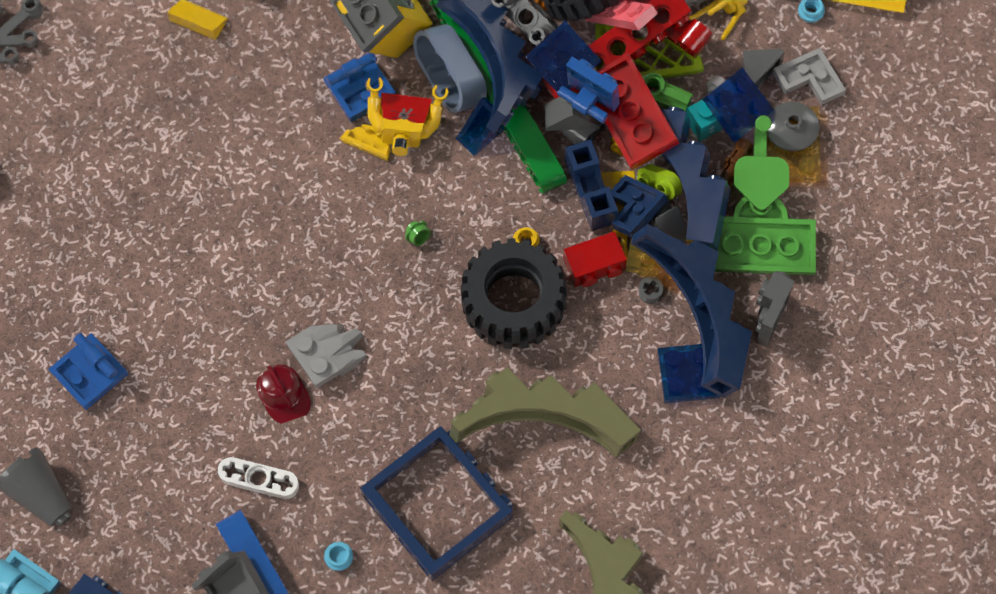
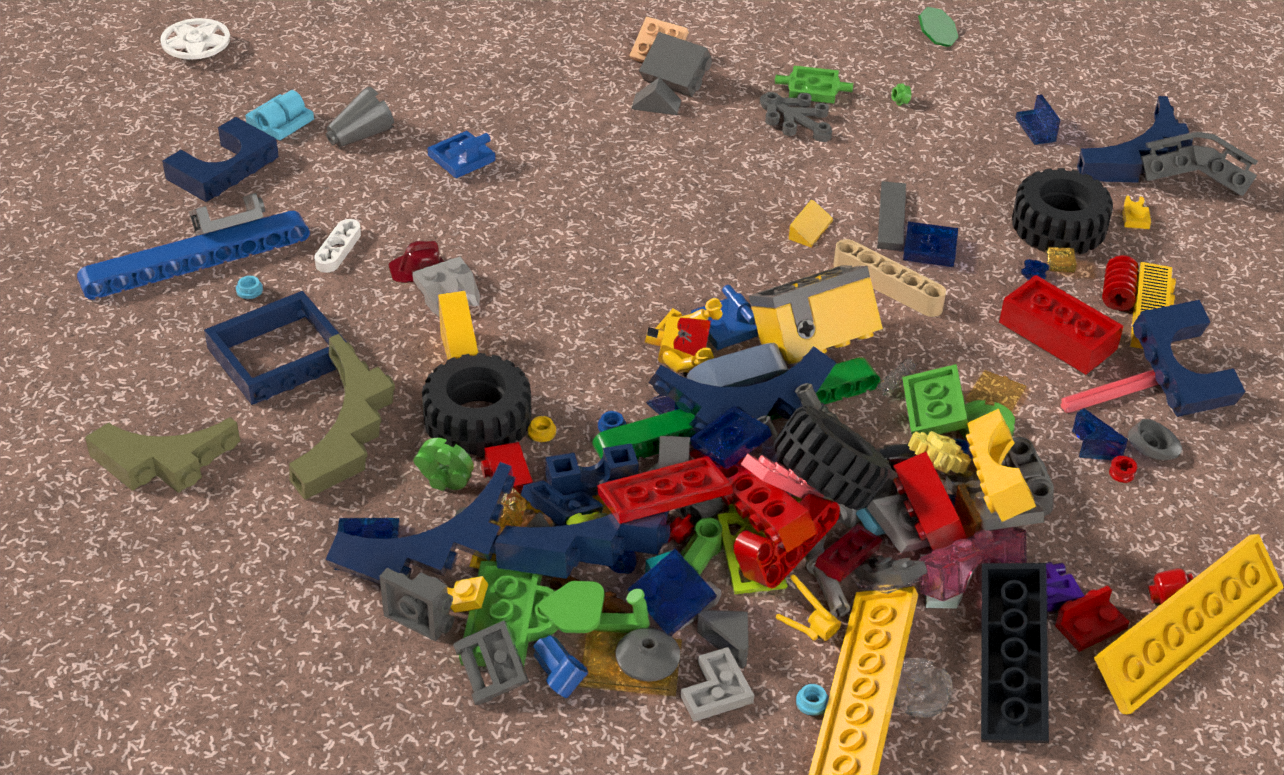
camera: 90 degrees right, 25 degrees down
(415, 324) = (456, 325): none -> yellow slope
(417, 233) = (561, 353): bright green plate -> none
(515, 173) = (610, 420): none -> blue plate
(592, 87) = (682, 437): blue plate -> none
(599, 319) = (432, 463): none -> bright green plate
(748, 273) = (468, 594): none -> yellow plate
(819, 189) = (562, 668): none -> blue piece
(822, 233) = (500, 658): none -> dark grey plate

